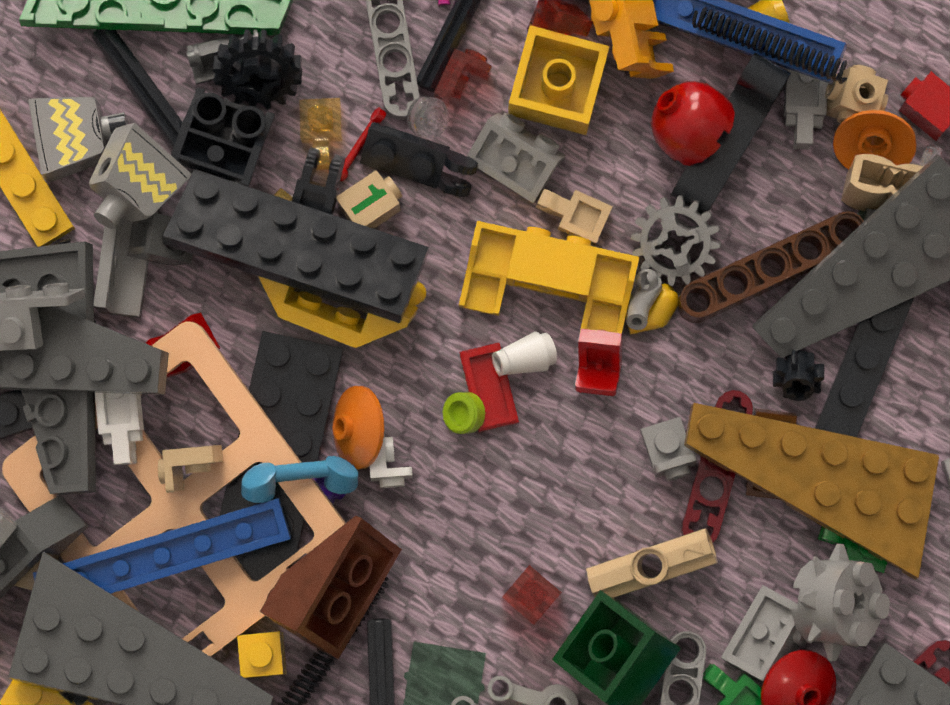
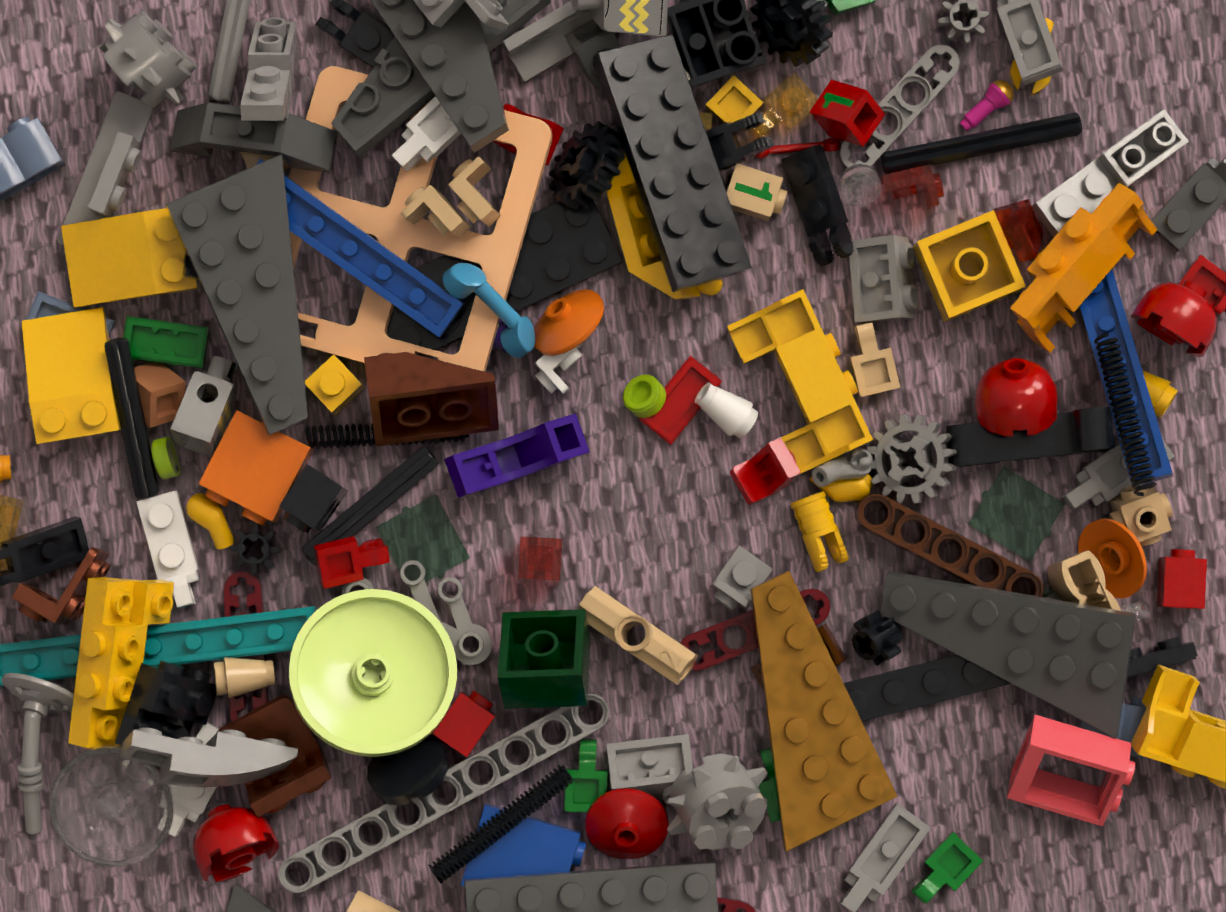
camera: 50 degrees right, 5 degrees up
(204, 428) = (473, 203): none -> tan bracket
(245, 316) = (586, 165): none -> black gear
(285, 164) = (733, 101): none -> yellow plate
(363, 82) = (847, 113): none -> red brick
(434, 550) = (517, 456): none -> dark purple arch
(669, 352) = (815, 521): none -> yellow hinge
(780, 193) = (1016, 514): none -> clear green piece

